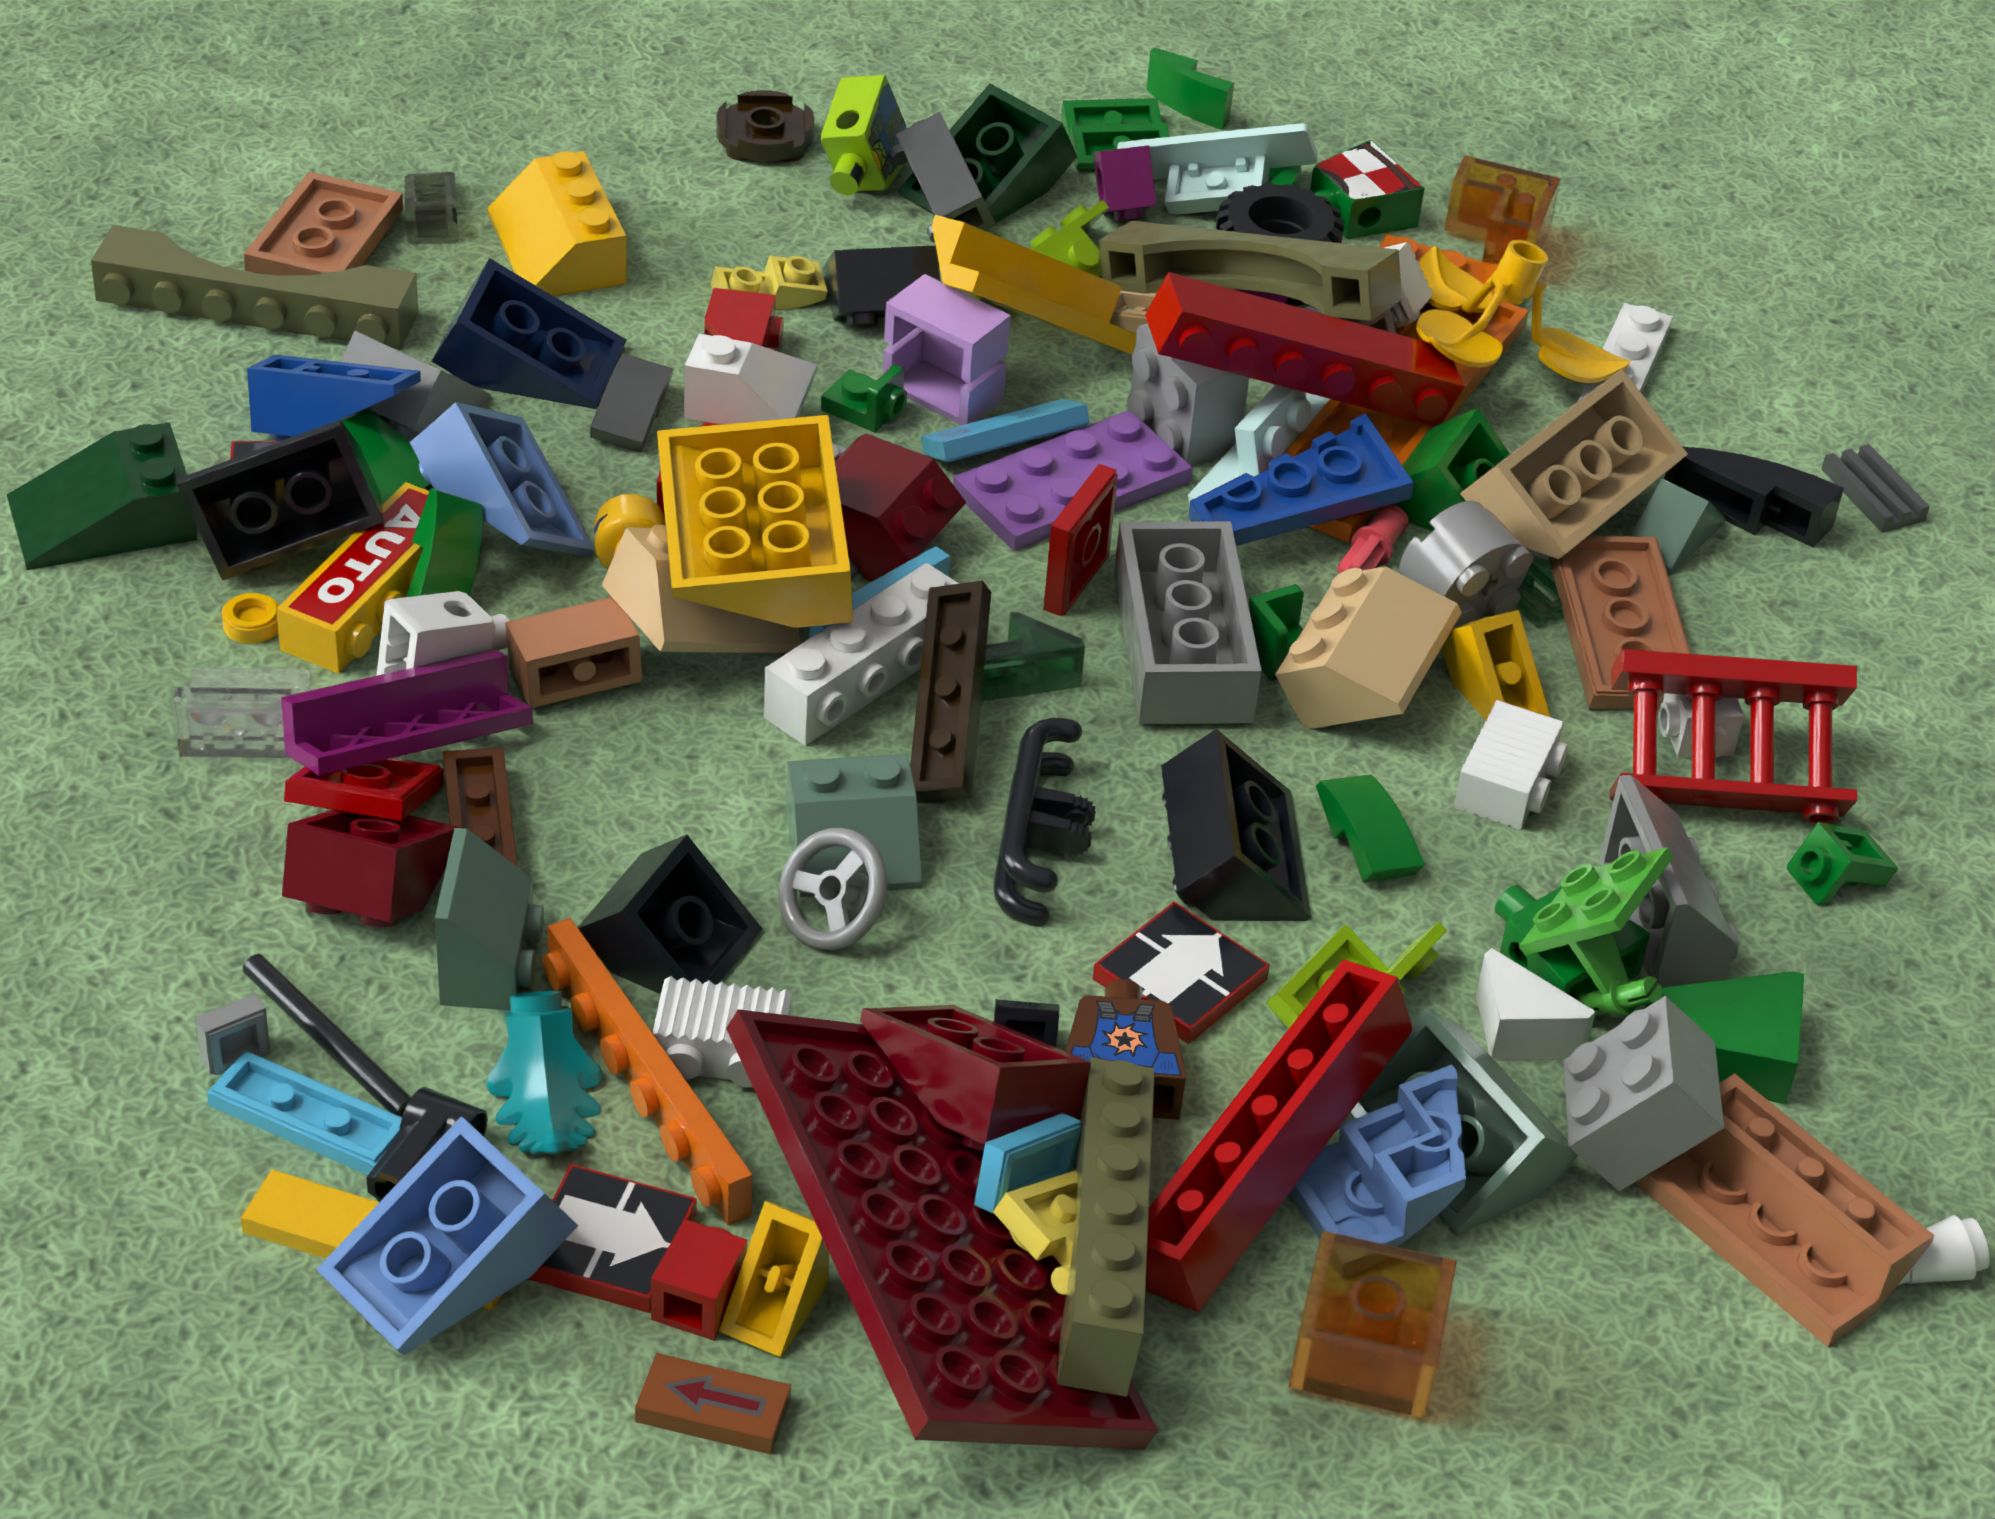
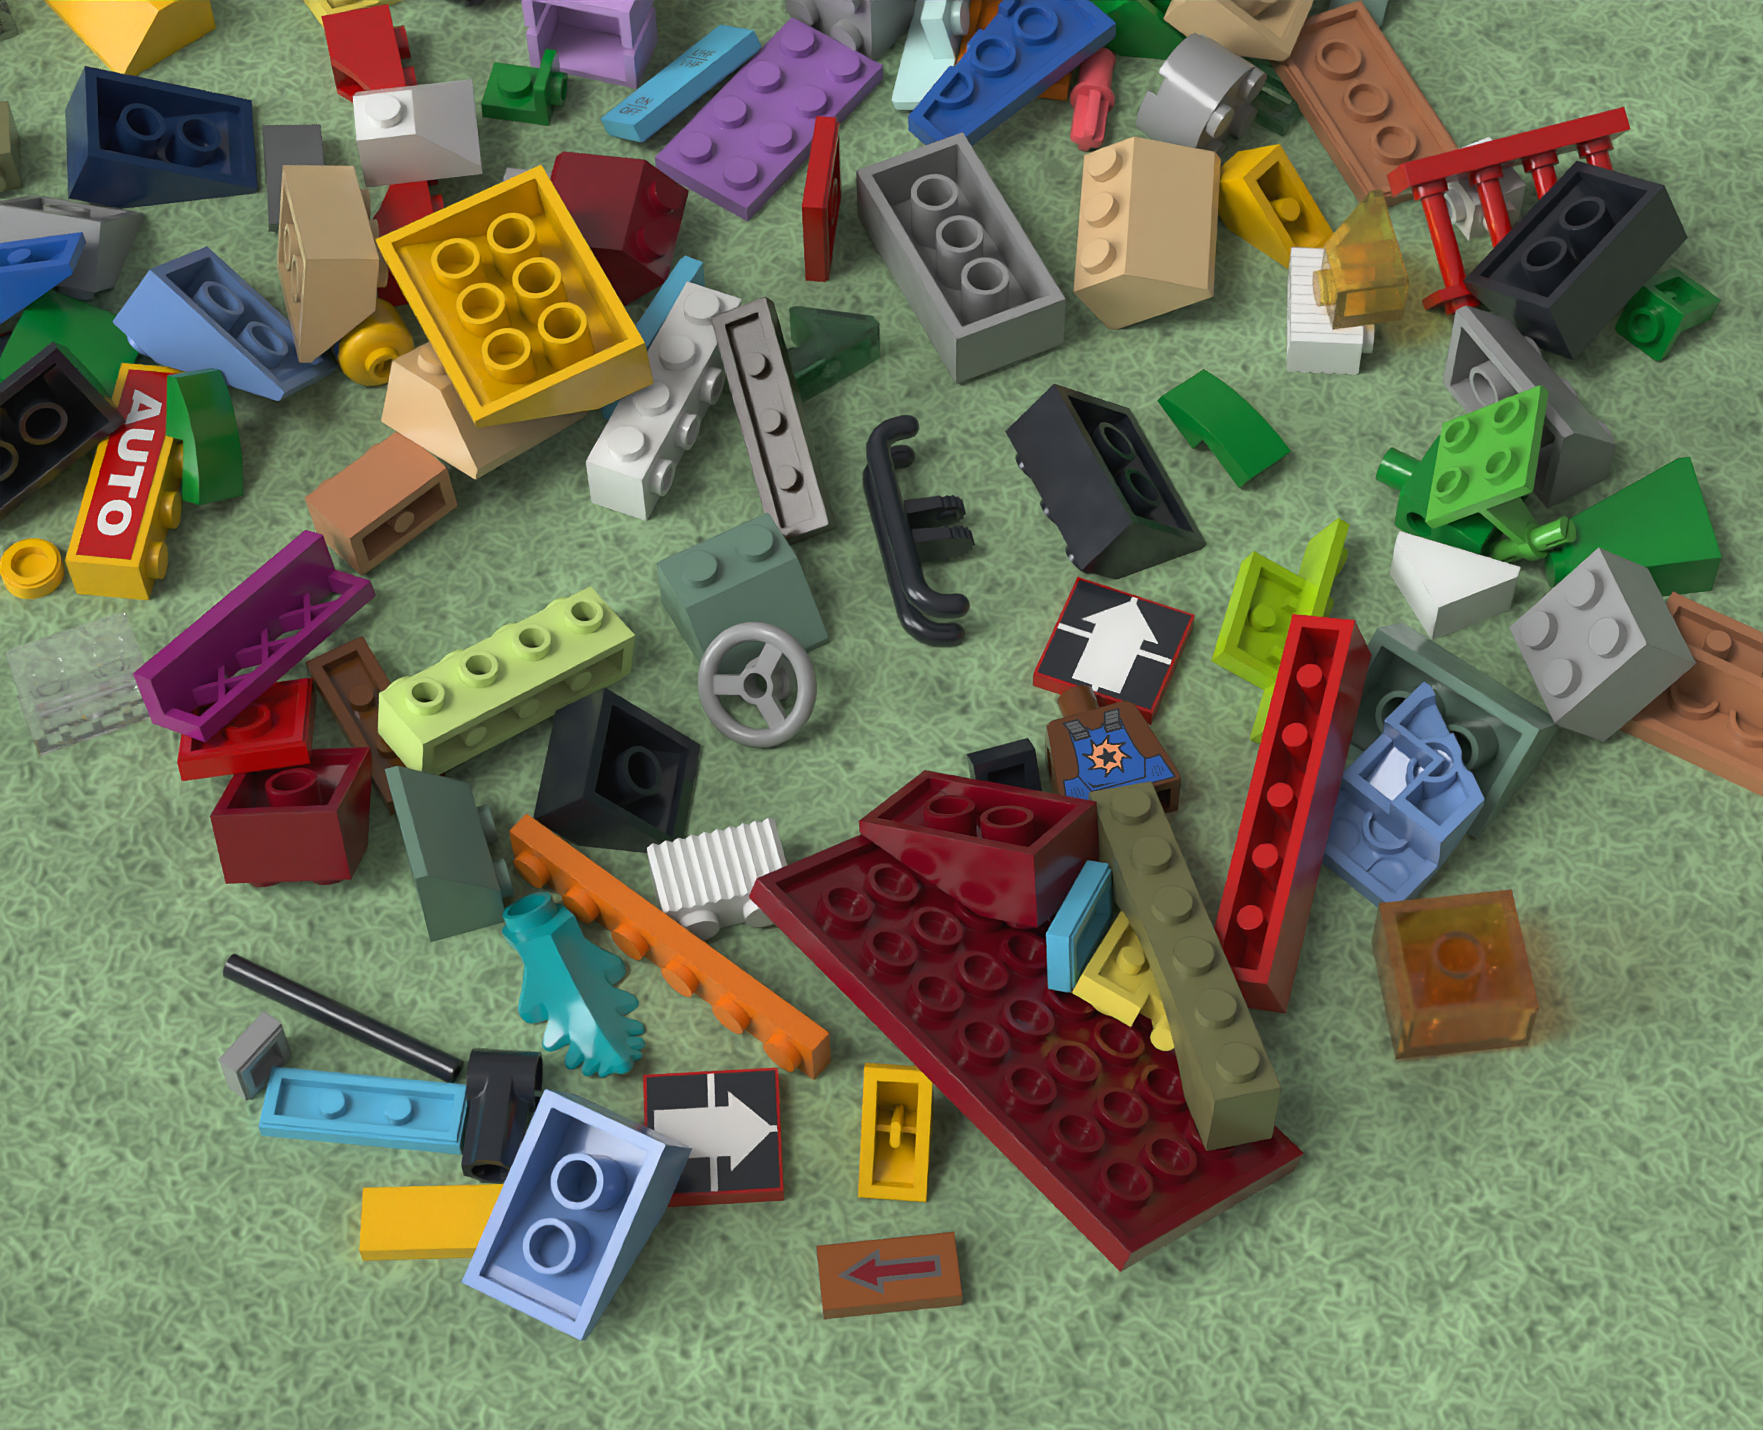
camera: 15 degrees left, 15 degrees up
(435, 630) = (240, 537): white torso -> none
(605, 814) = (505, 683): none -> yellowish green brick
(619, 448) = (326, 255): none -> tan slope
(697, 1279) = (822, 1154): red brick -> none
(1276, 625) = (1050, 232): green panel -> none
(1548, 726) = (1362, 269): none -> clear yellow slope
(1766, 781) = (1578, 256): none -> black slope

